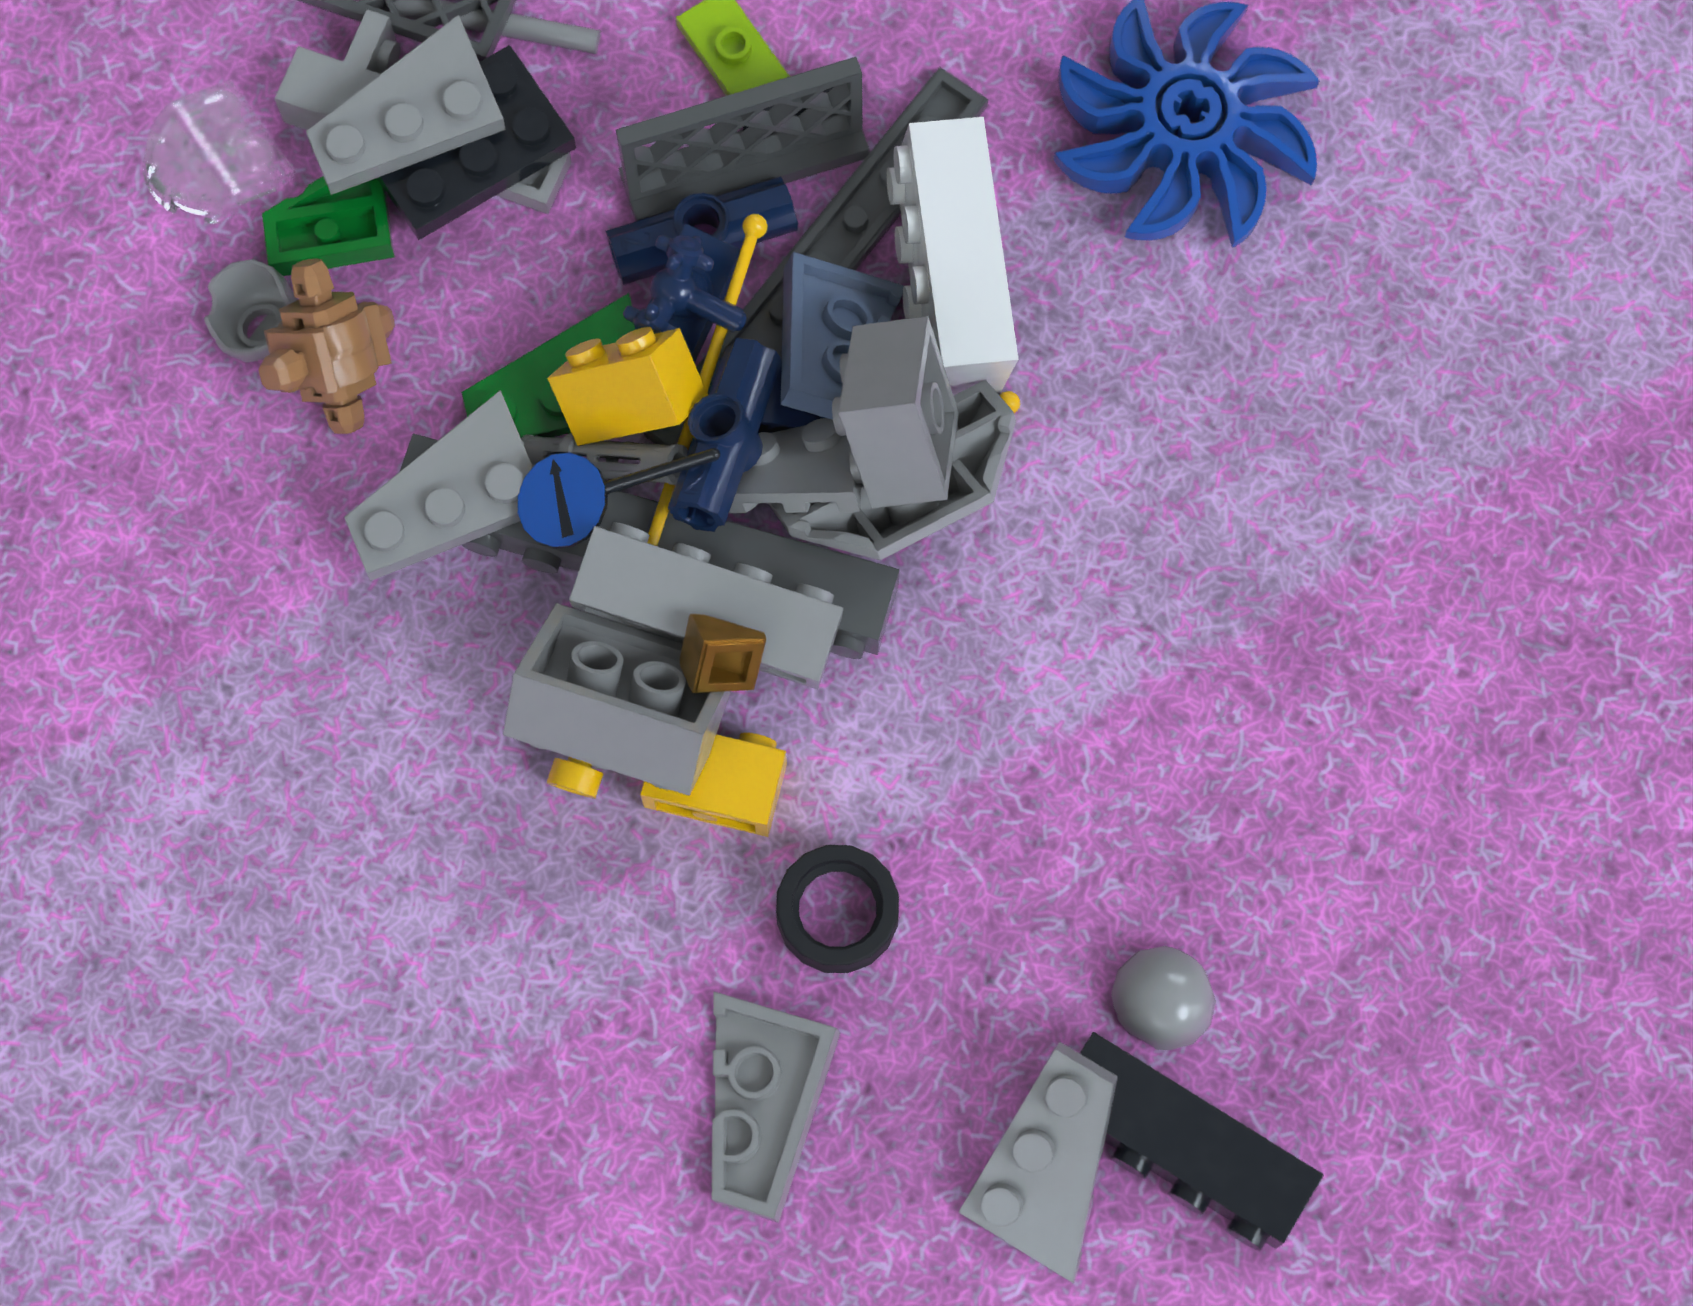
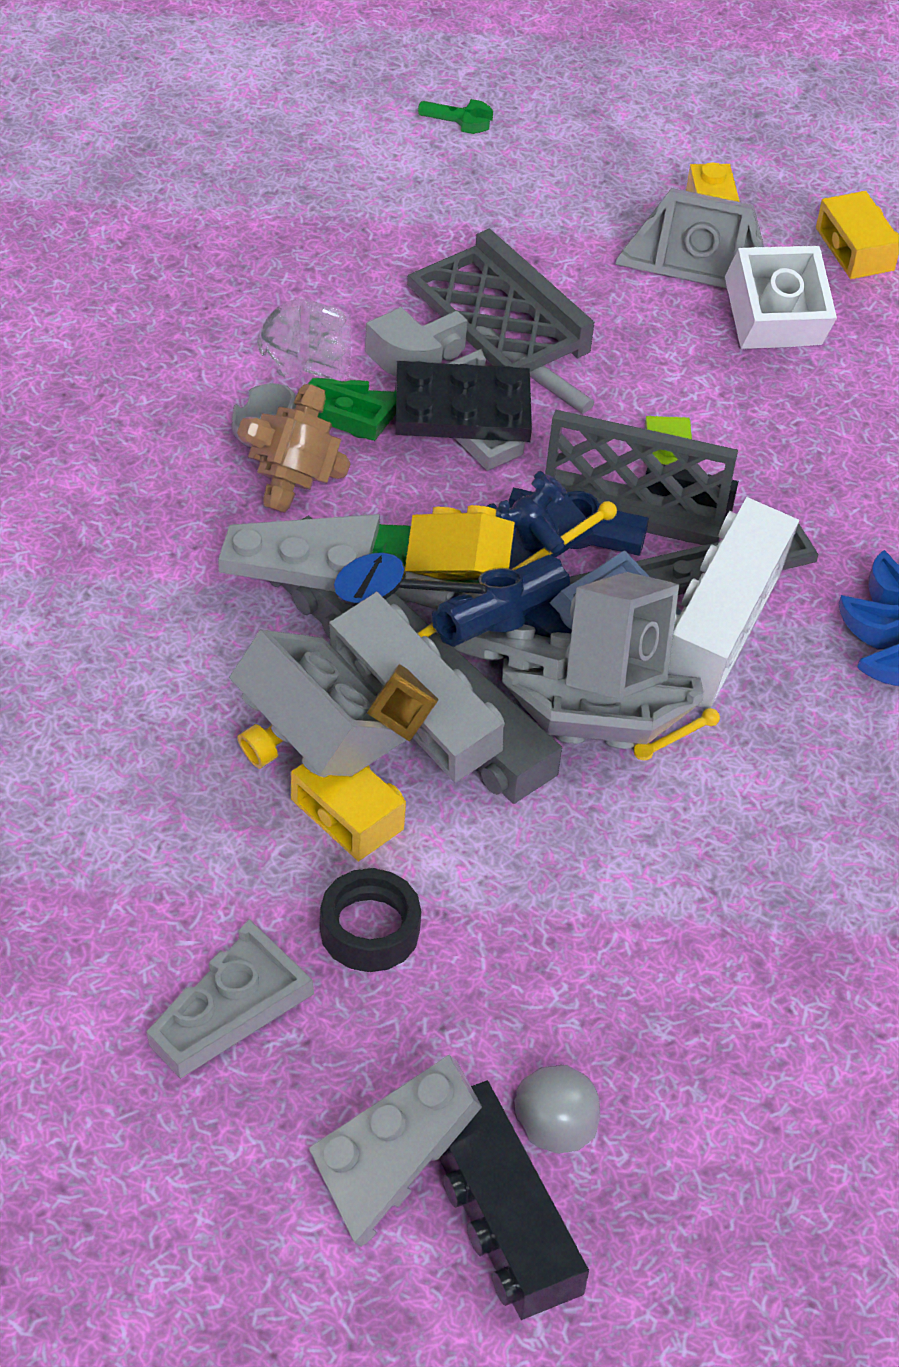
camera: 30 degrees right, 25 degrees down
(408, 113) = (437, 360): light grey wing -> none

